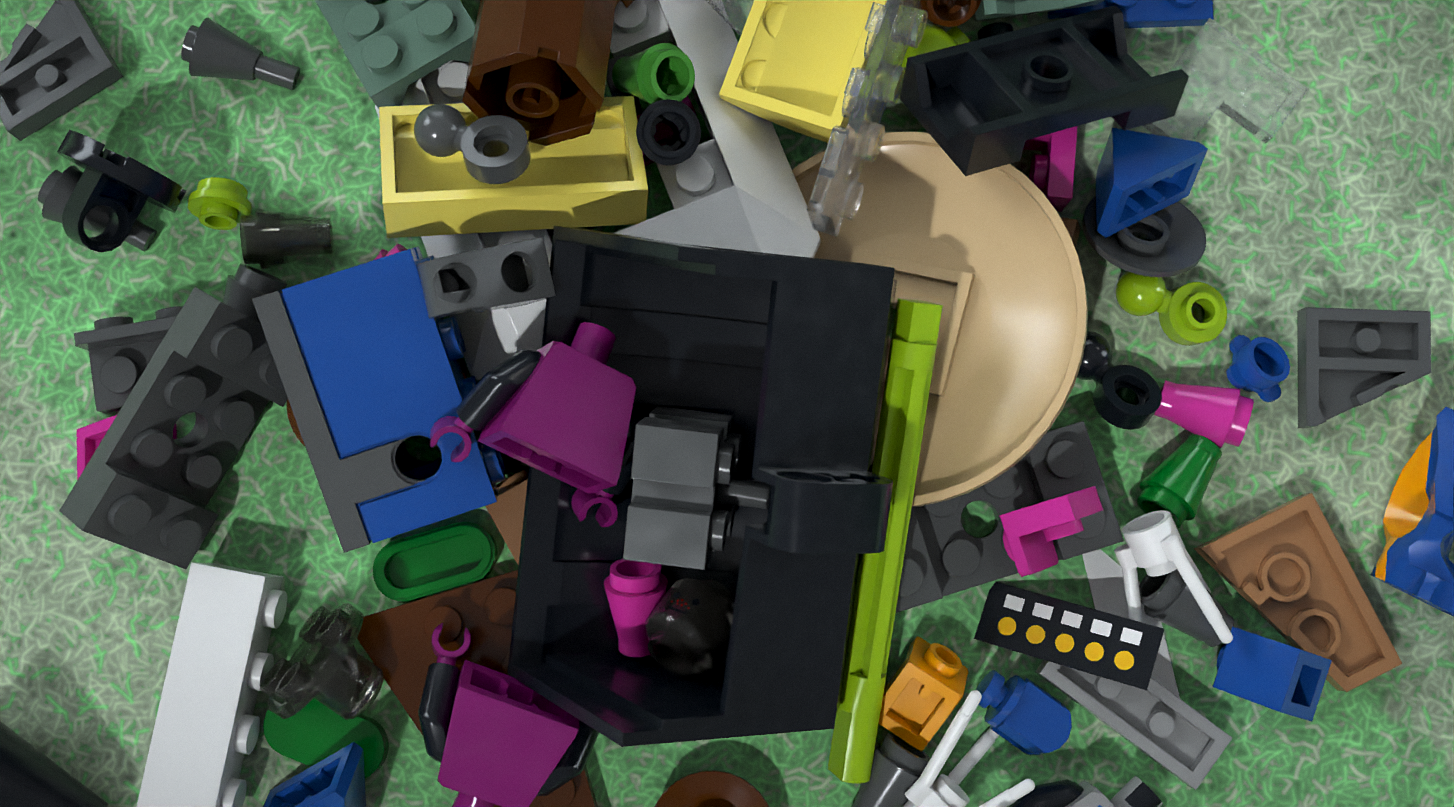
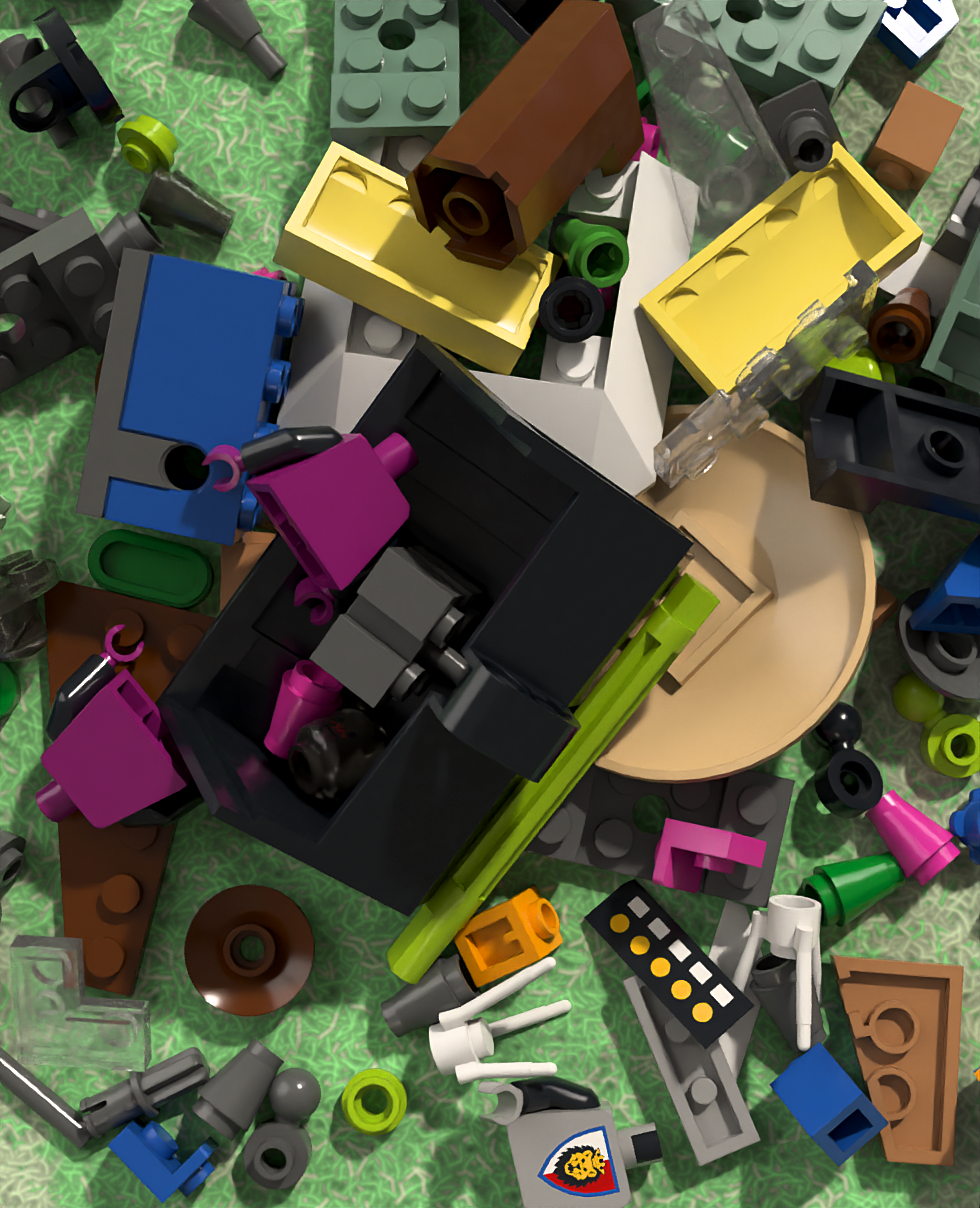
camera: 30 degrees right, 0 degrees up
(486, 279) = (335, 347): dark grey leg -> none
(492, 146) = (375, 196): dark grey plate -> none
(1024, 714) = (587, 1008): blue arm -> none
(1055, 167) = (904, 542): dark pink bracket -> none

